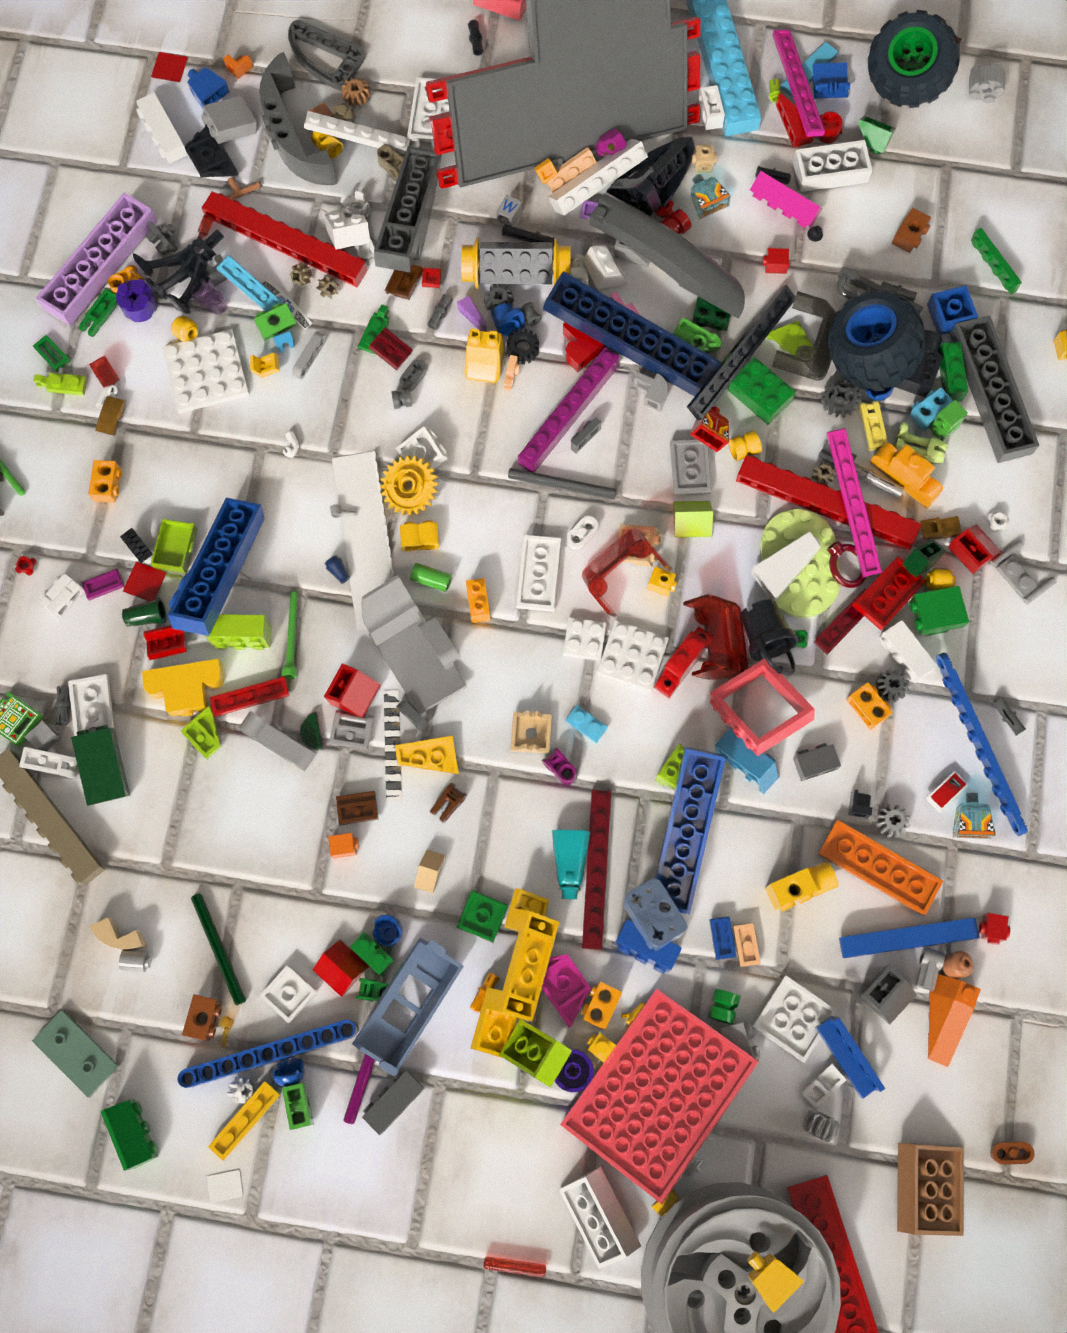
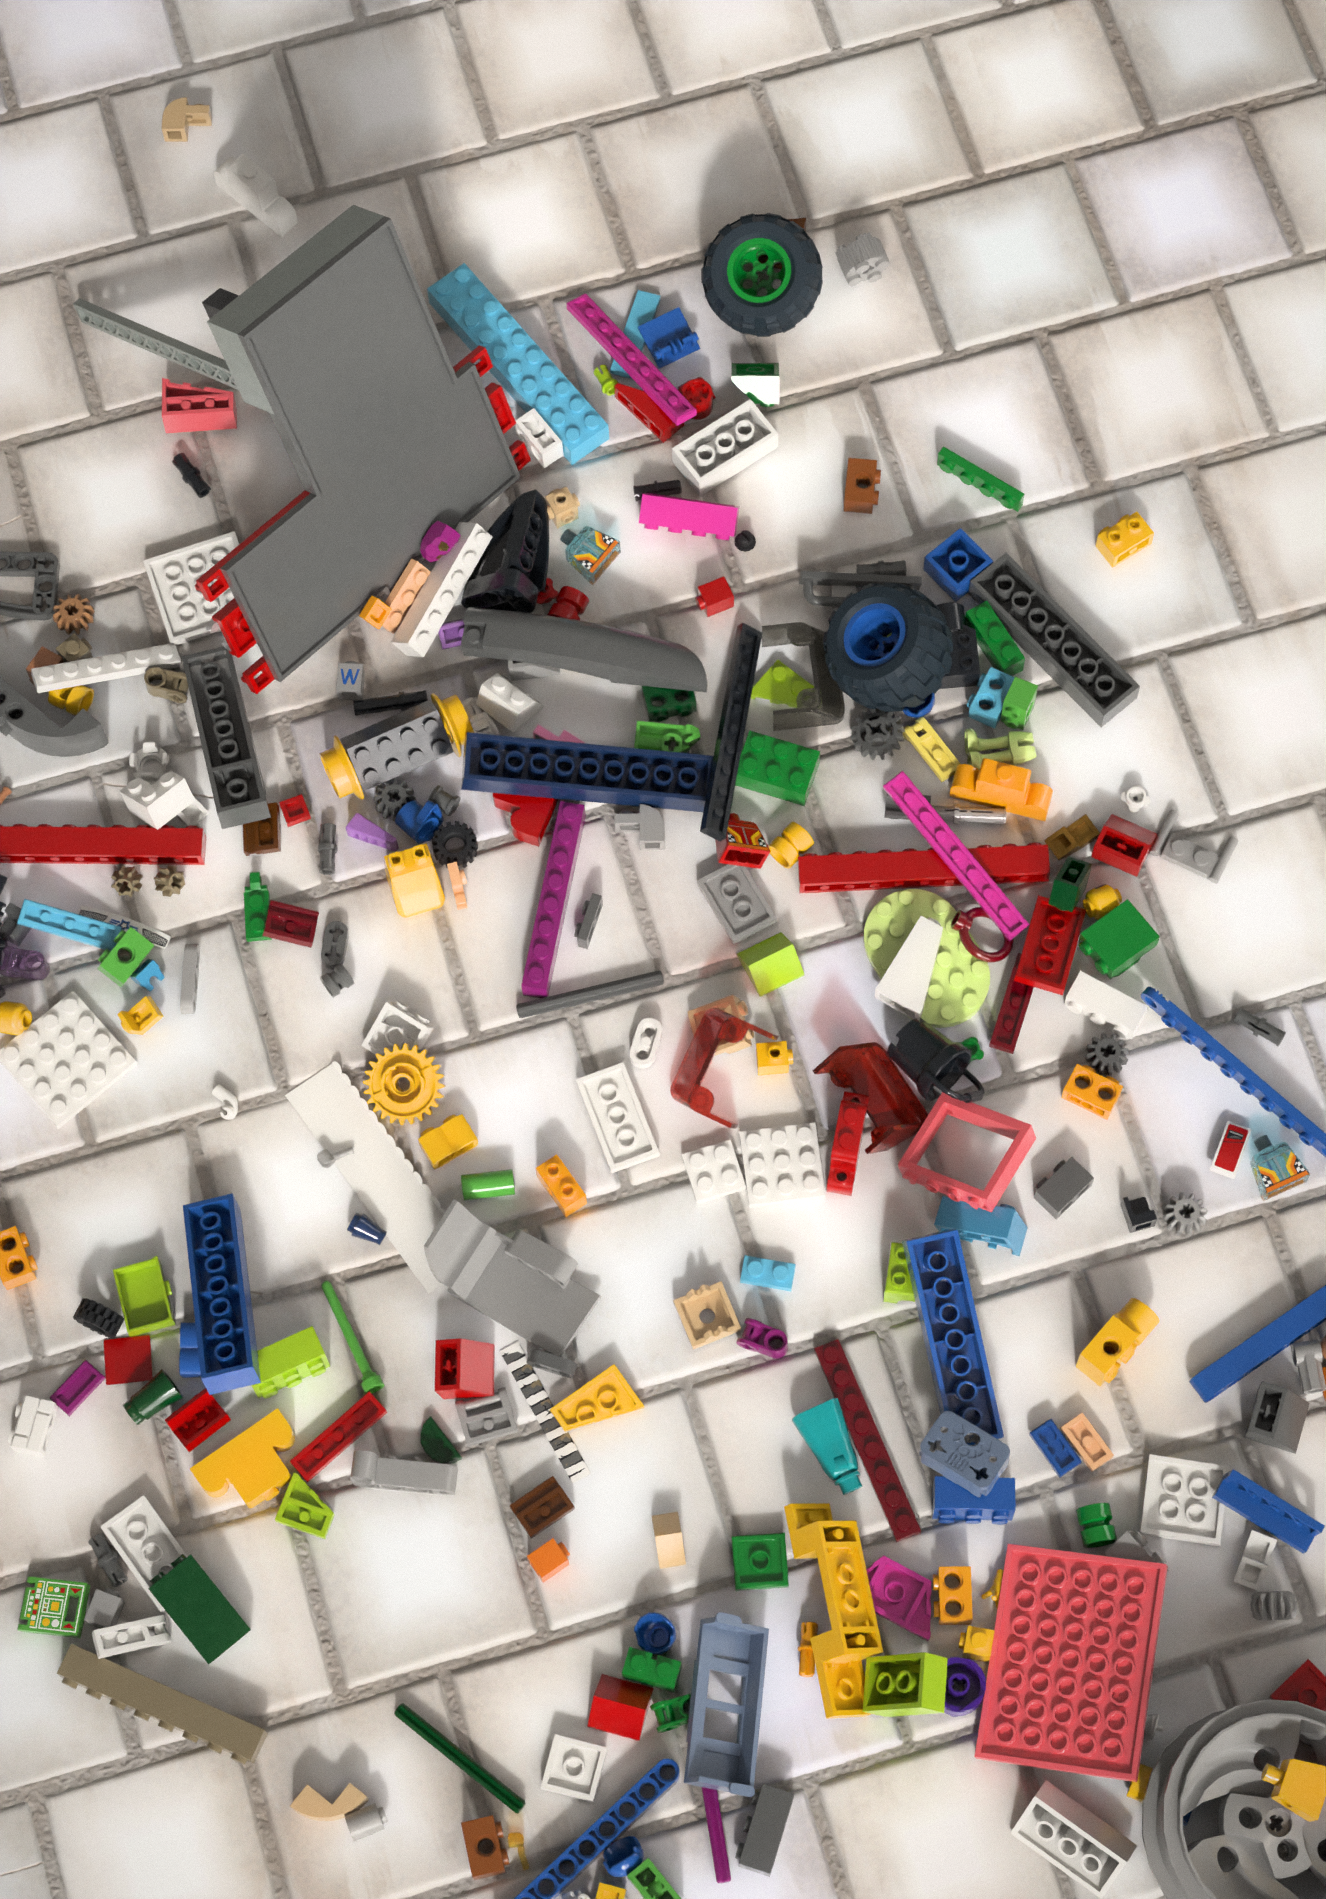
camera: 25 degrees left, 5 degrees down
(454, 802) = (645, 1439): reddish brown piece -> none
(823, 468) = (901, 829): dark tan gear -> none
(880, 867) = (1196, 1276): orange plate -> none

